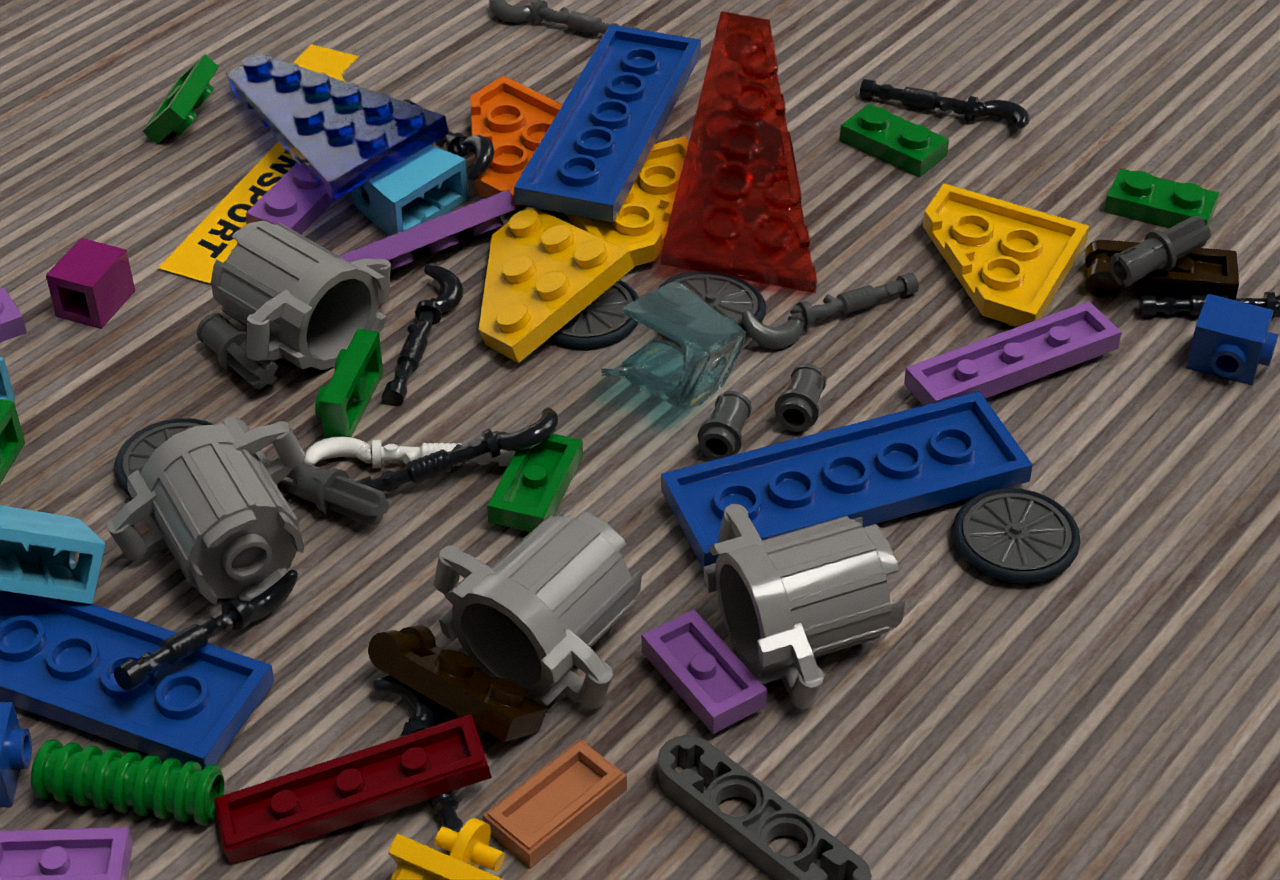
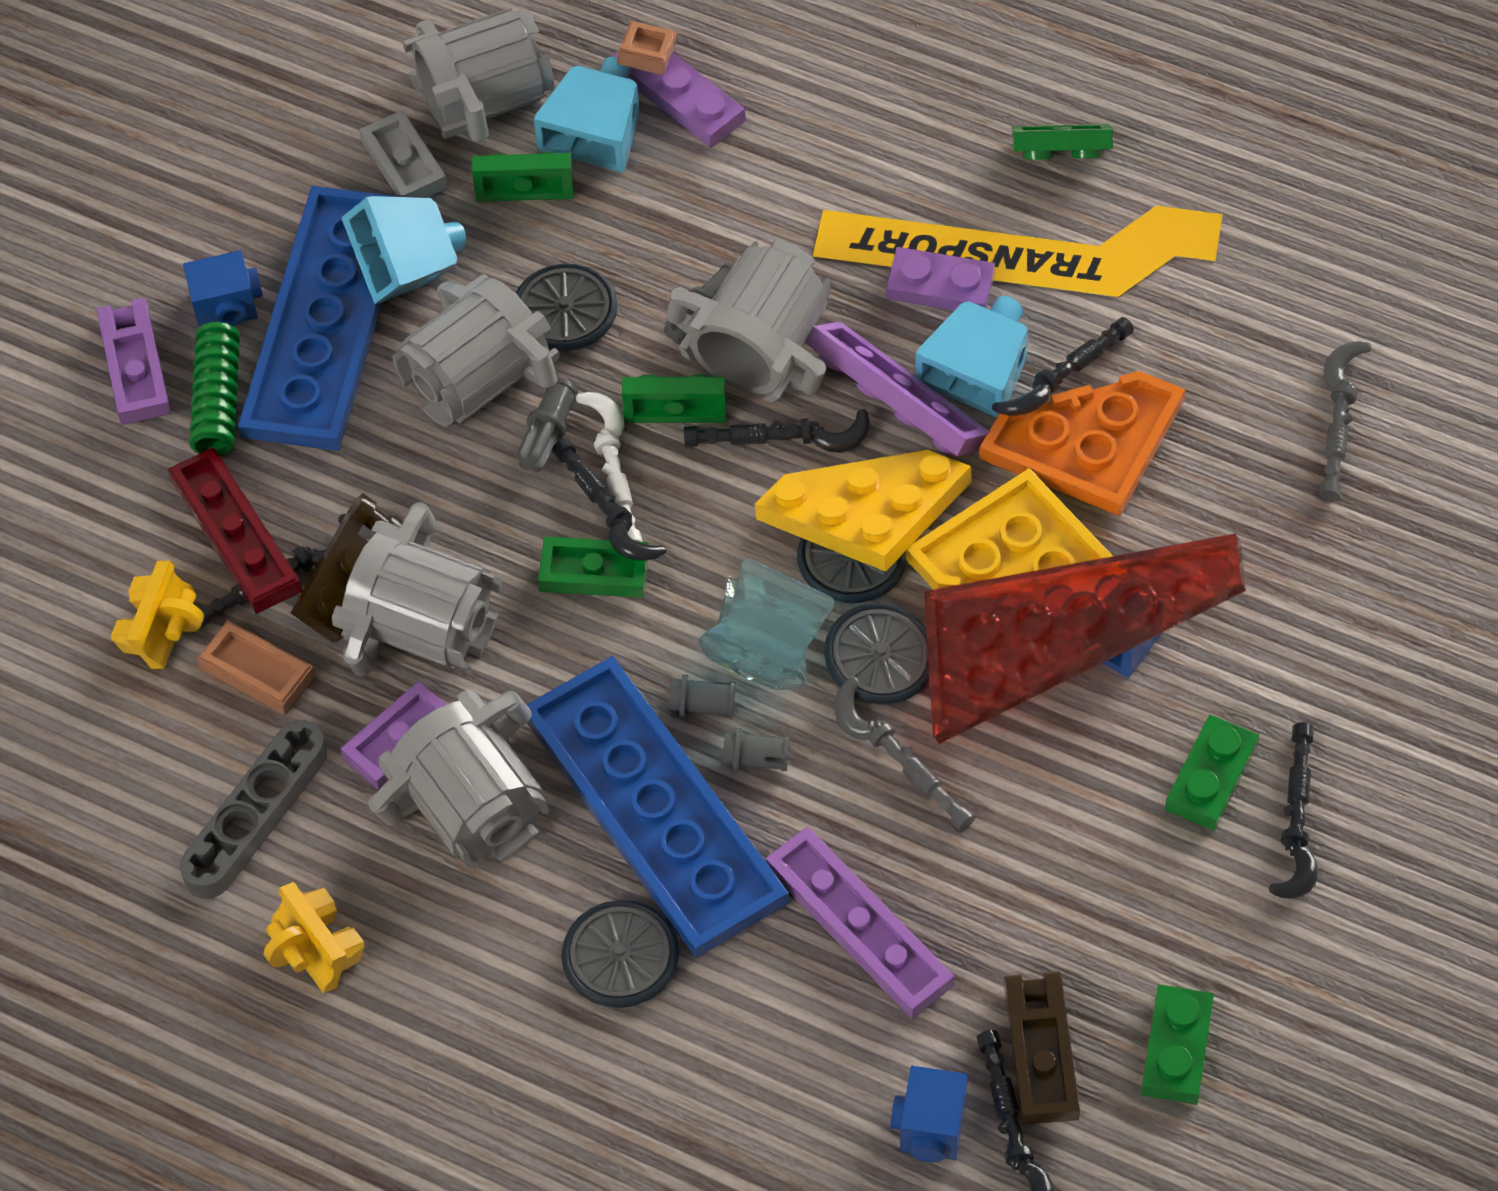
camera: 80 degrees right, 15 degrees up
(90, 283) = (764, 167): magenta brick -> none
(235, 615) = (344, 380): black piece -> none
(333, 124) = (1034, 271): clear blue wing -> none
(608, 124) = (1108, 495): blue plate -> none
(961, 783) = (305, 942): none -> yellow hips
(1003, 252) = (1027, 896): yellow plate -> none
(1159, 251) = (1030, 1025): dark grey axle -> none

